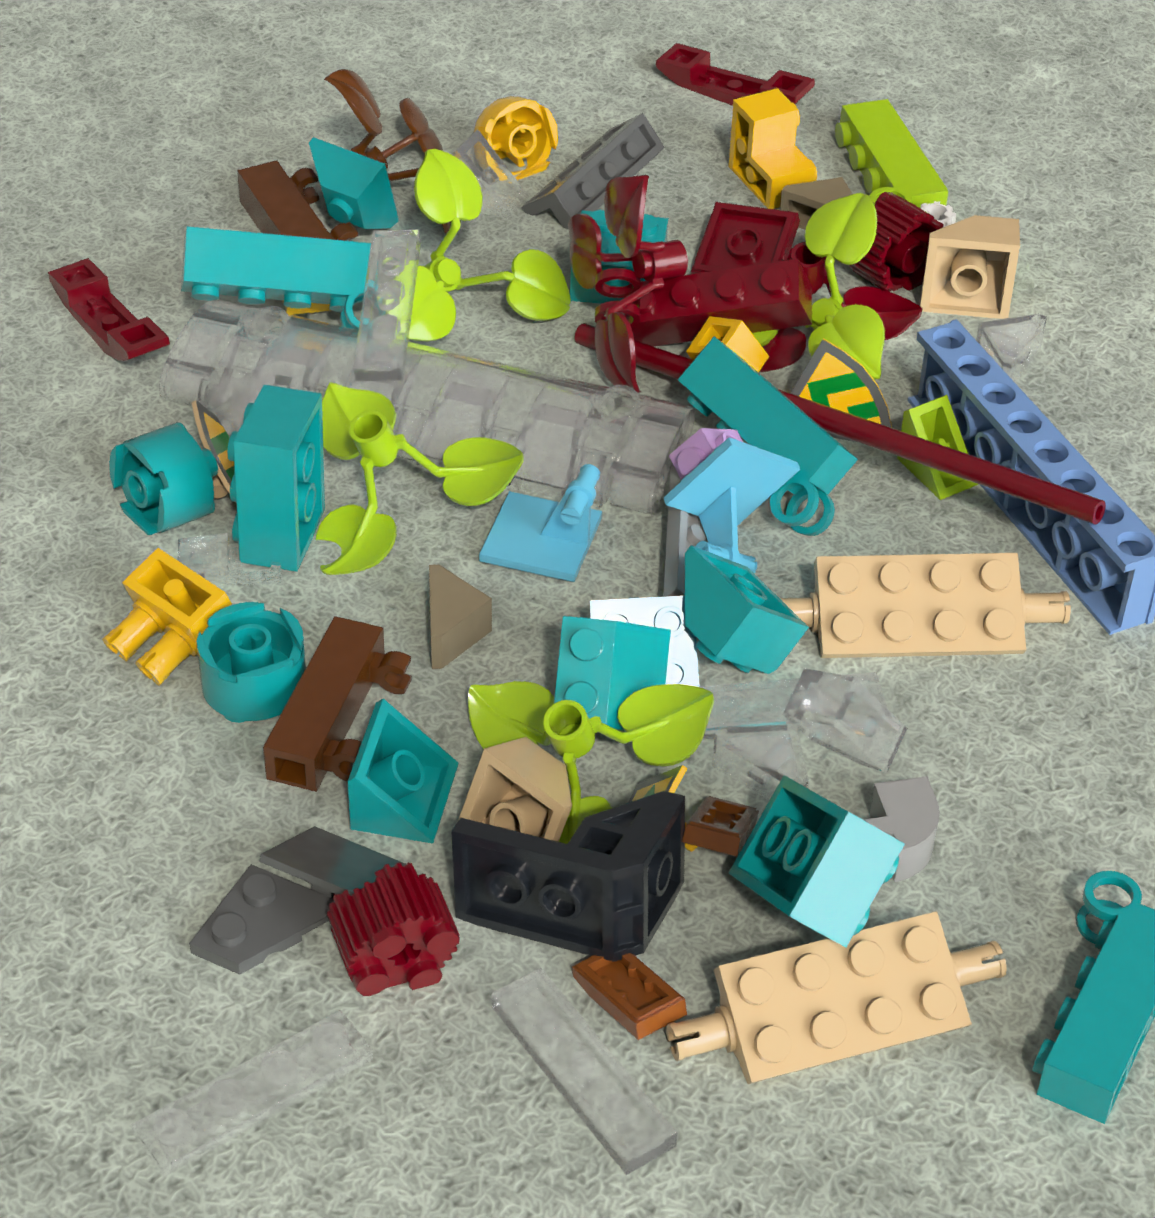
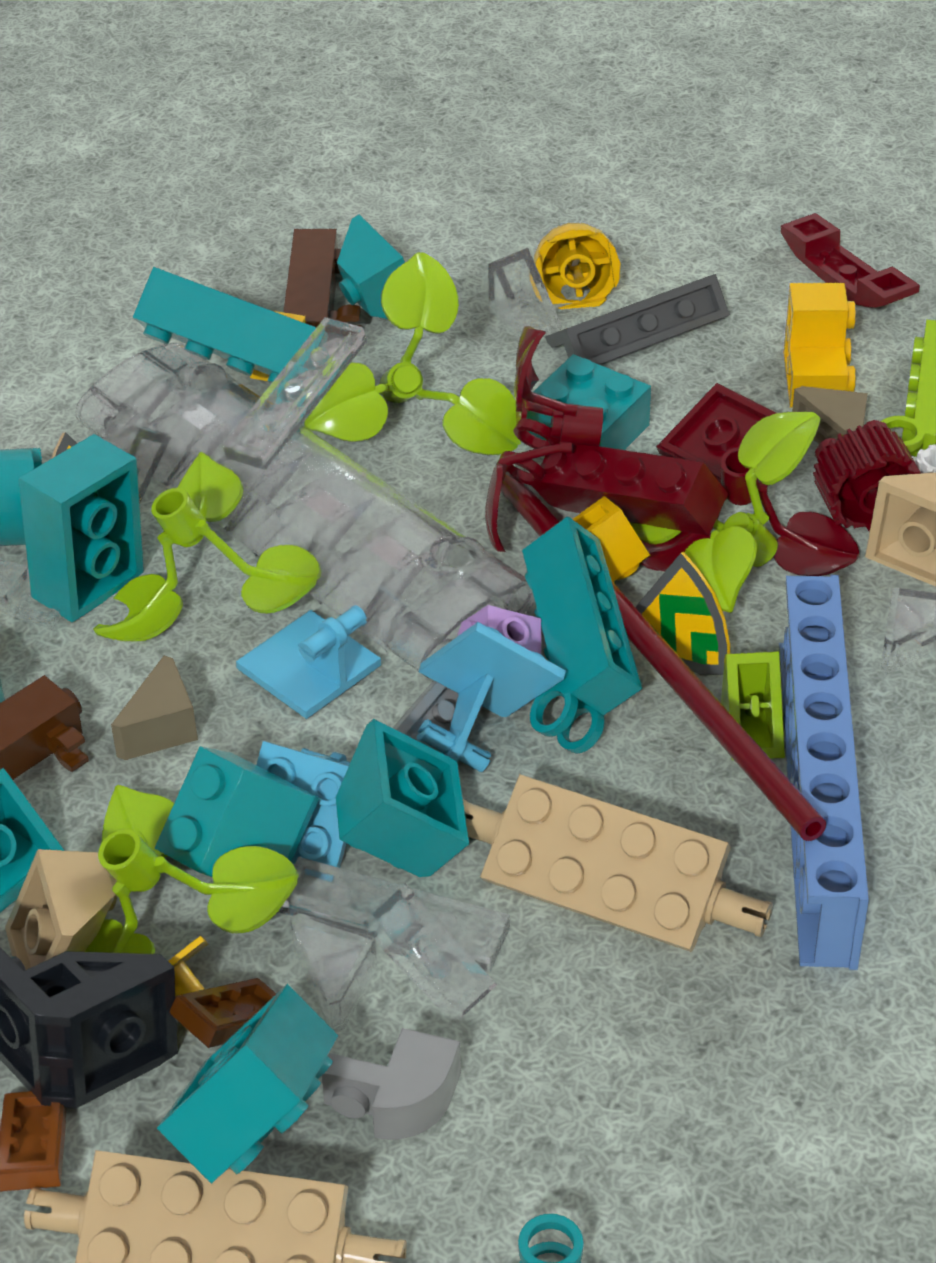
camera: 30 degrees right, 0 degrees up
(107, 321) = (93, 326): dark red slope -> none
(367, 111) = (417, 197): reddish brown plant -> none

